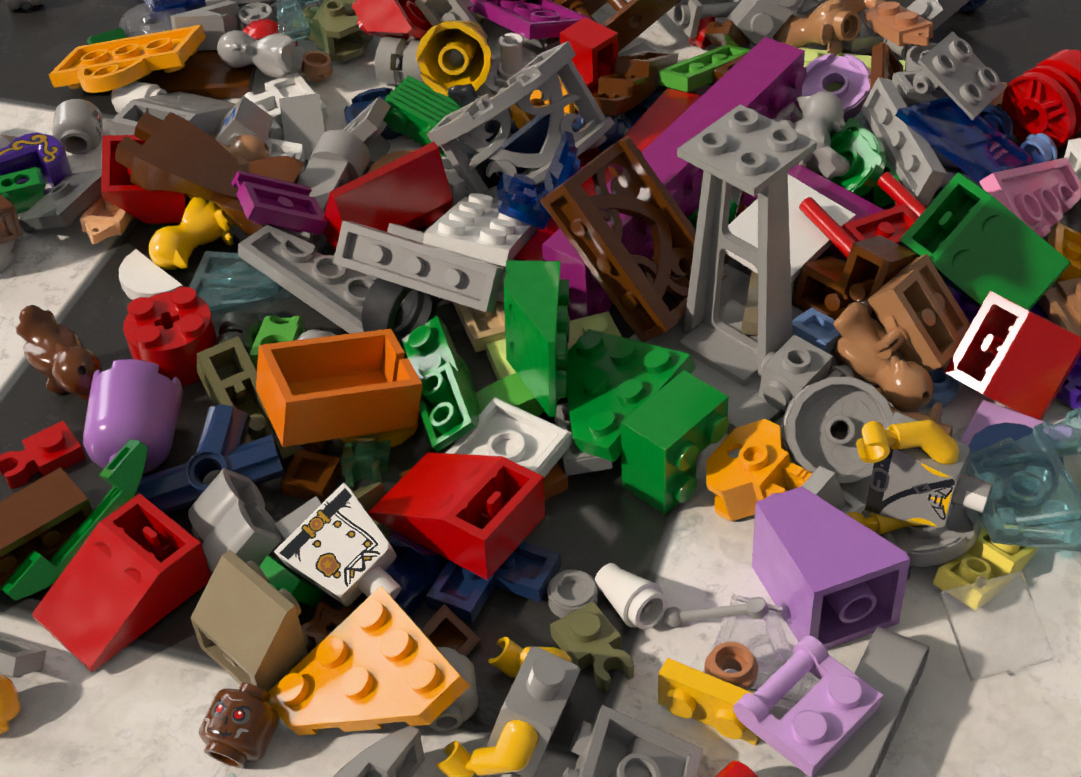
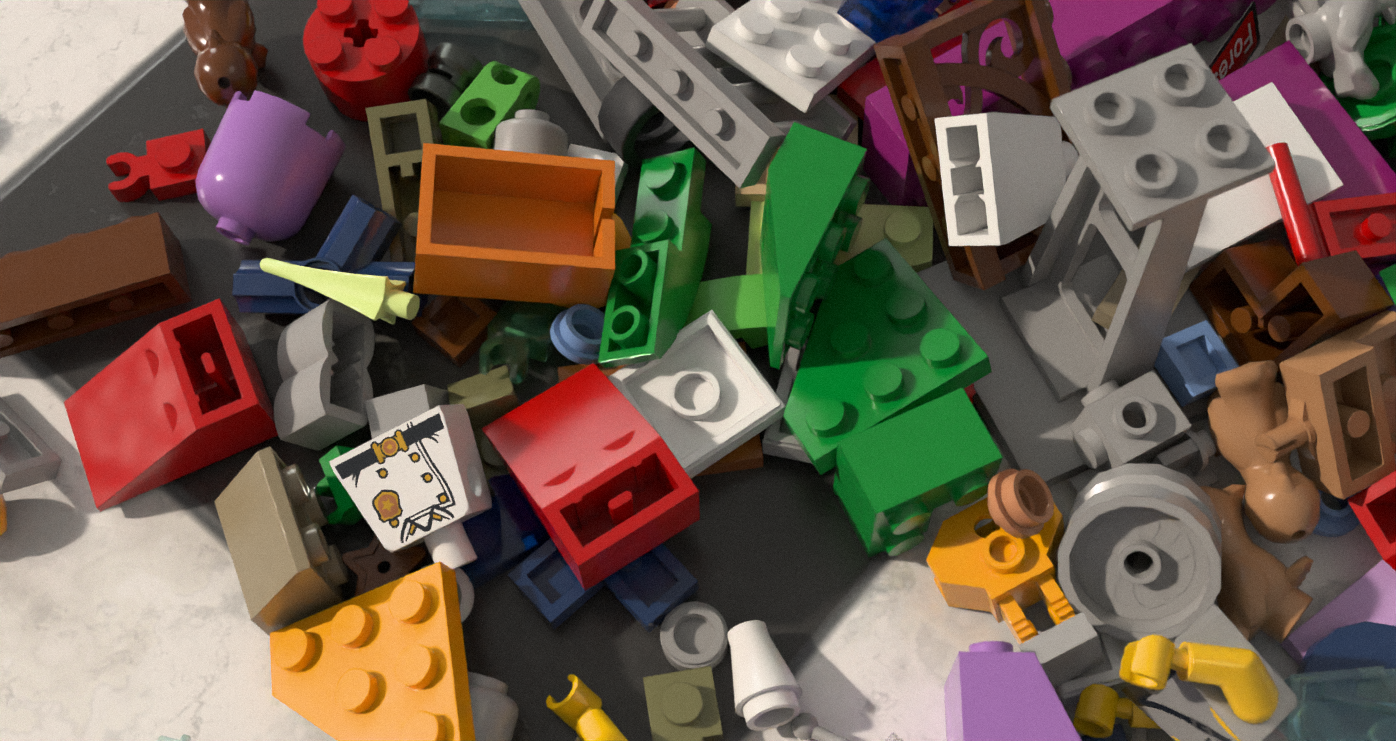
camera: 25 degrees right, 20 degrees up
(124, 476) = (95, 345): green slope -> none
(239, 725) = (218, 670): reddish brown head -> none
(247, 457) = (366, 294): none -> yellowish green piece
(407, 446) = (578, 333): none -> medium blue plate
(449, 631) = (507, 639): reddish brown slope -> none
(649, 245) = (1000, 174): none -> white torso
(750, 421) = (1019, 502): none -> nougat plate

